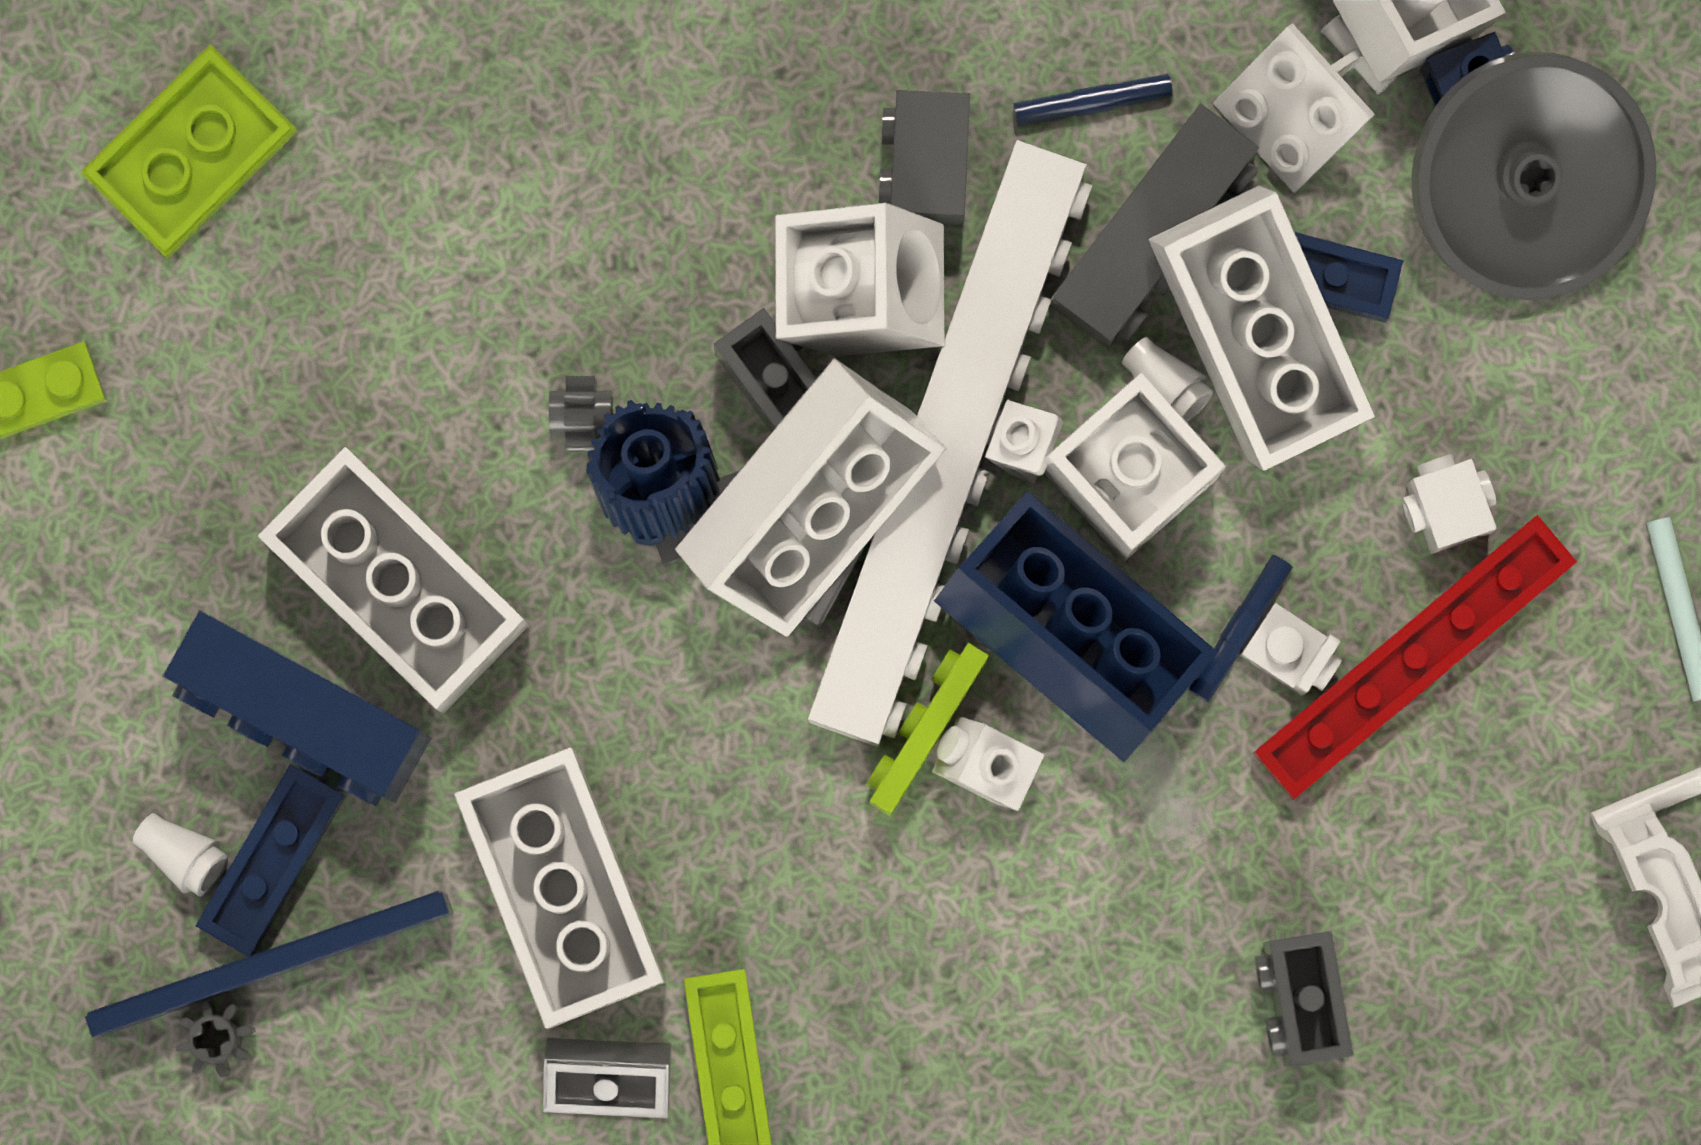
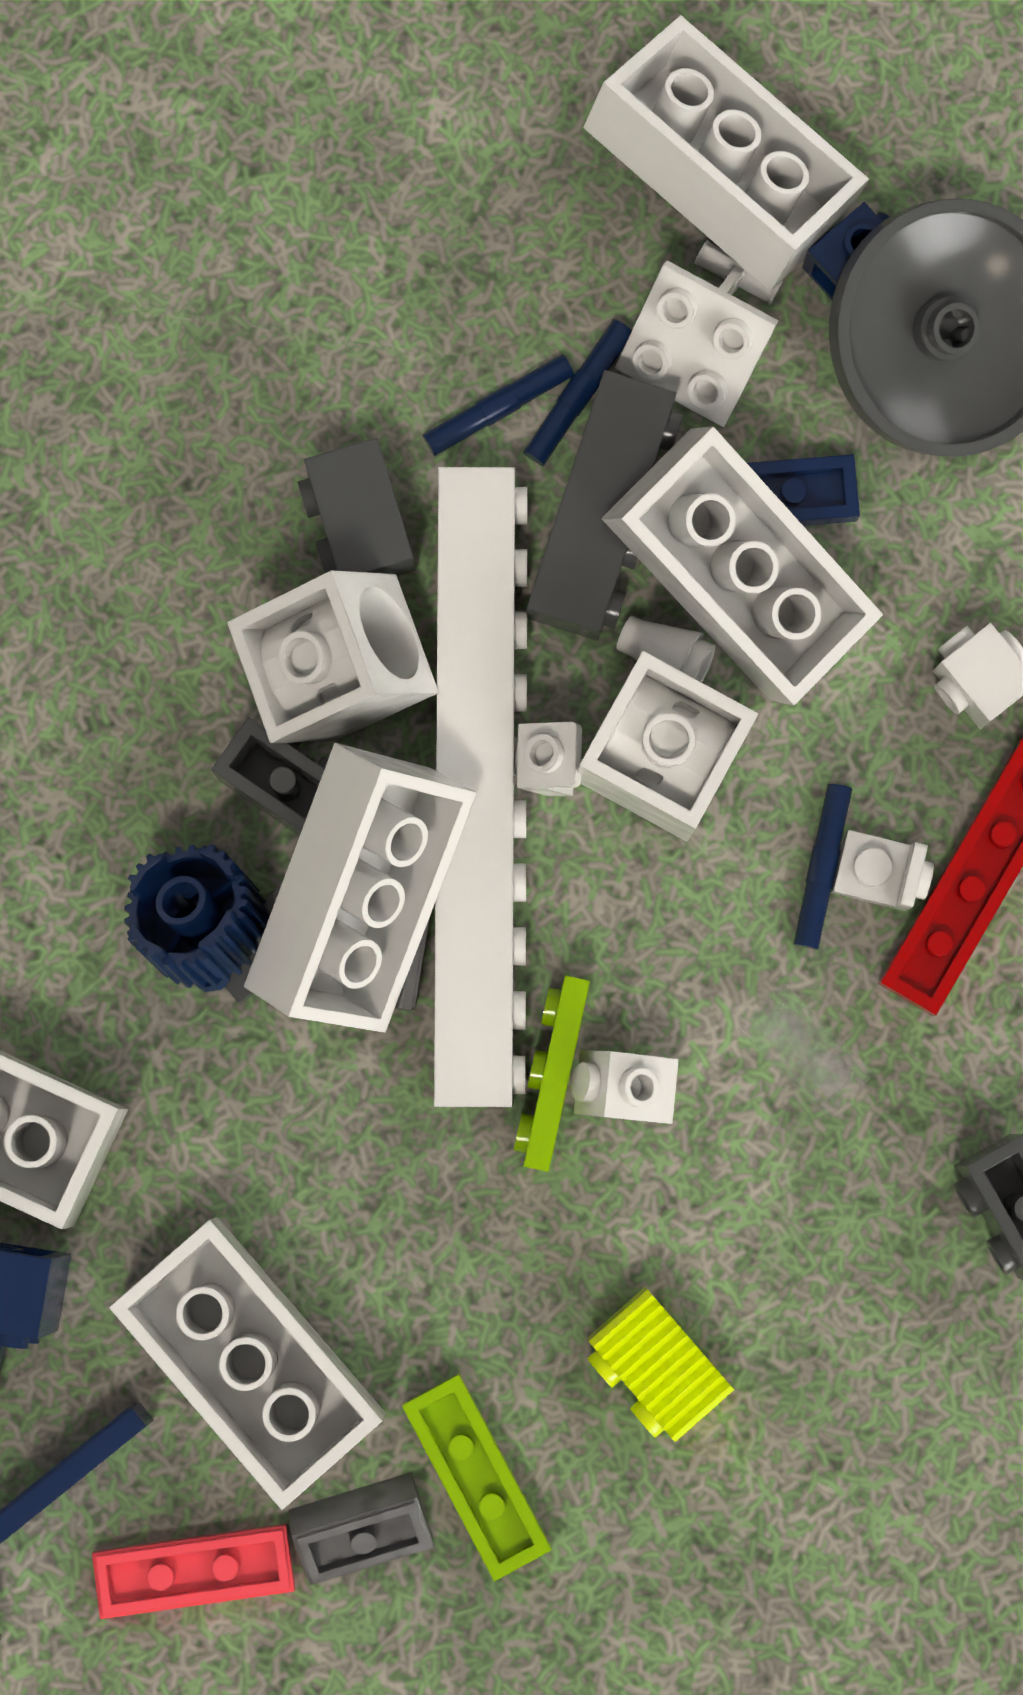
camera: 20 degrees left, 0 degrees up
(443, 1061) = (193, 1571): none -> coral tile
(578, 412) = (102, 883): dark grey gear -> none
(928, 1025) = (658, 1365): none -> neon yellow brick
(1075, 626) = (665, 923): dark blue brick -> none
(1170, 114) = (577, 393): none -> dark blue piece

